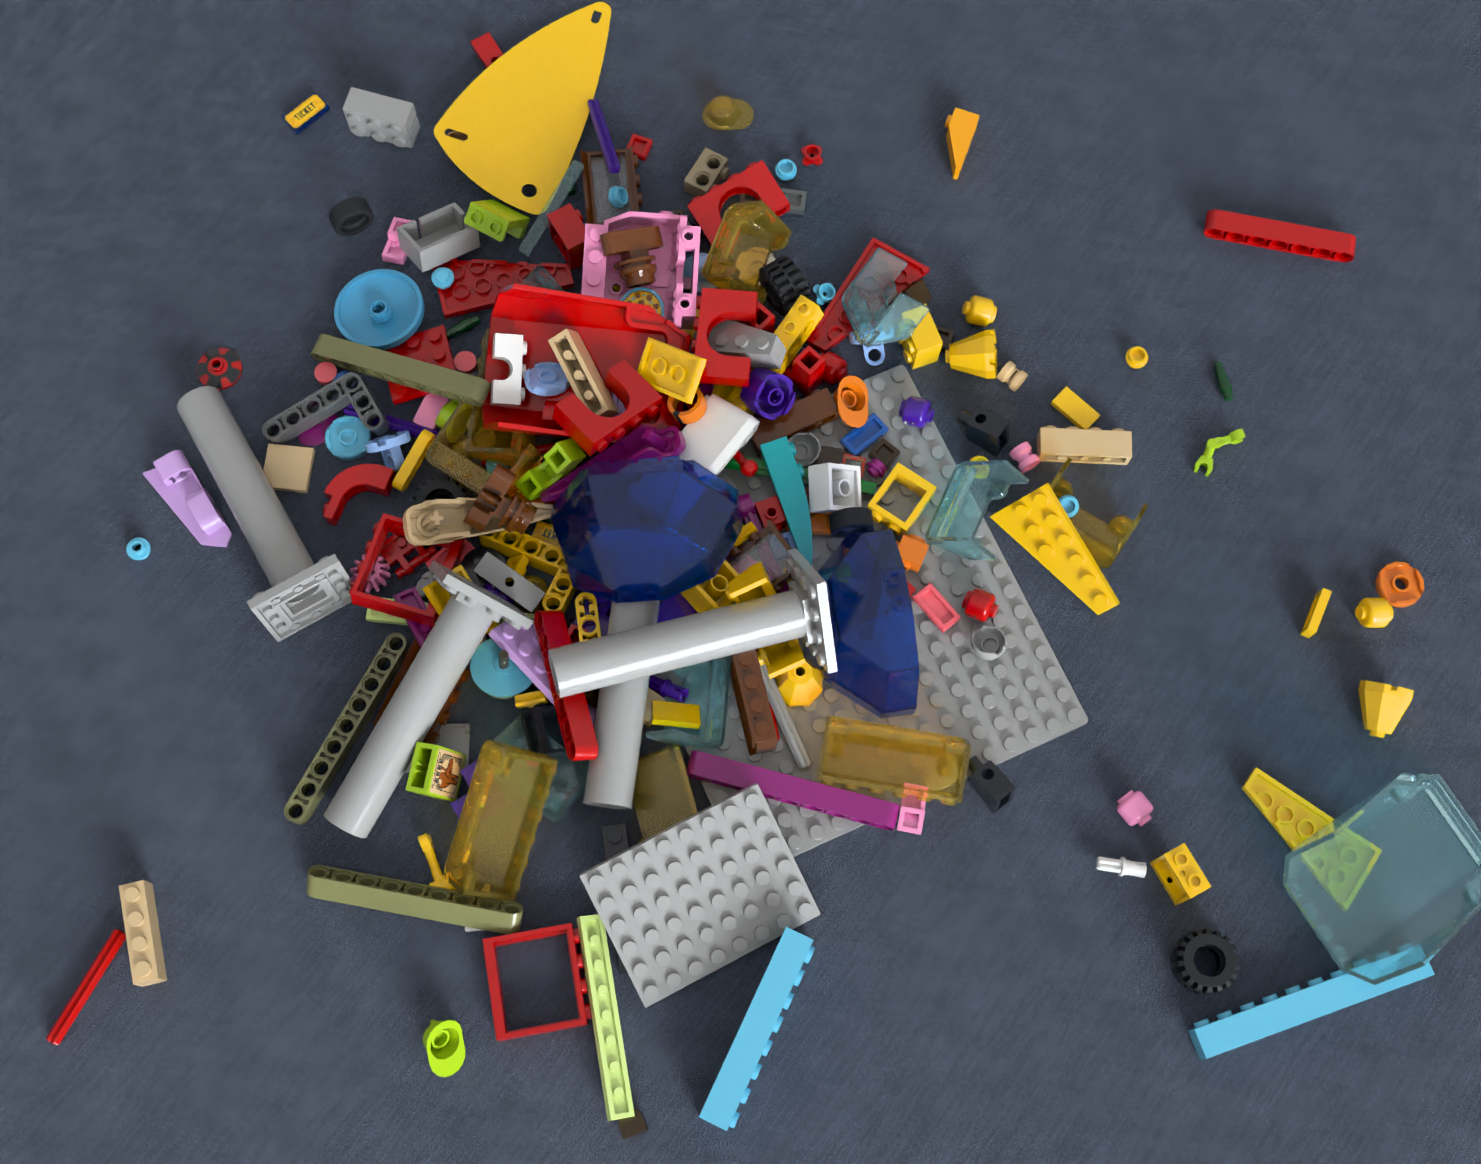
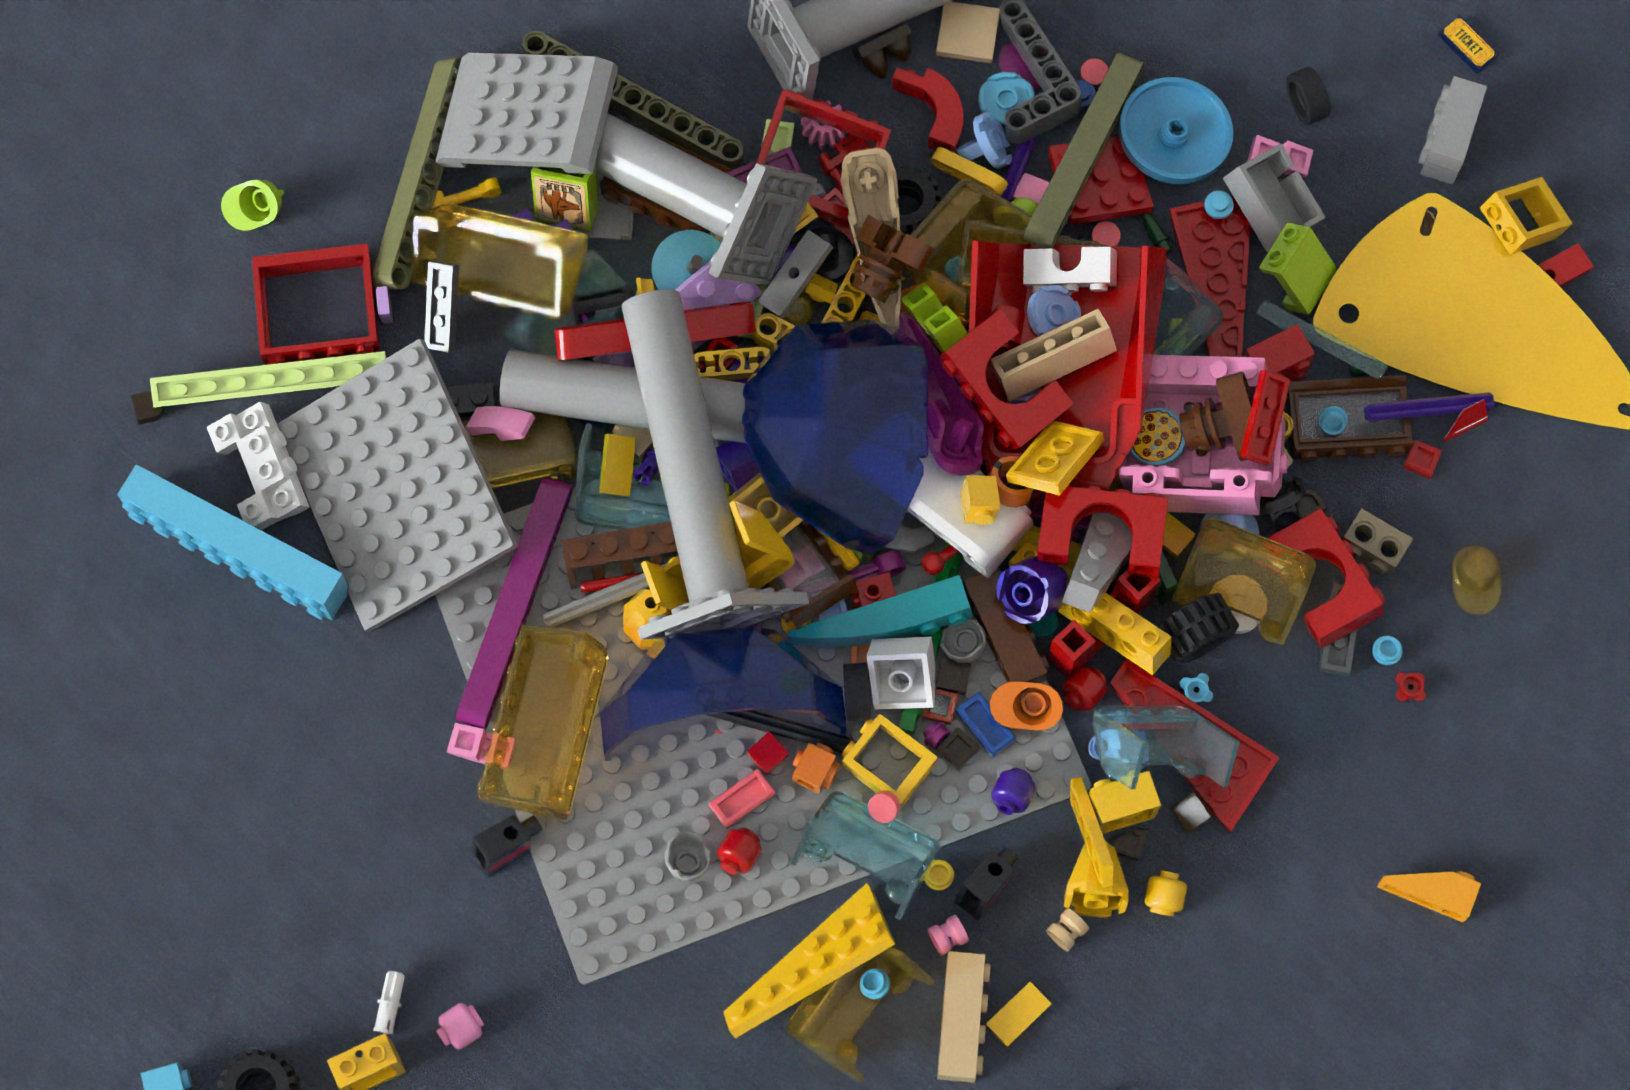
camera: 95 degrees right, 0 degrees up
(309, 537) = (873, 52): none -> dark brown tile
(368, 804) = (527, 111): none -> light grey slope
(444, 63) = (1541, 205): none -> yellow window
(535, 922) = (384, 305): none -> lavender tile
(539, 869) = (441, 306): none -> plate
(608, 115) = (1468, 419): none -> red sticker
(635, 220) = (1265, 417): none -> red tile
(644, 807) = (503, 421): none -> bright pink slope
(681, 1009) = (266, 462): none -> white bracket
(708, 422) = (980, 499): none -> yellow brick
(939, 498) = (884, 806): none -> coral tile
(946, 353) = (1091, 832): none -> yellow tile

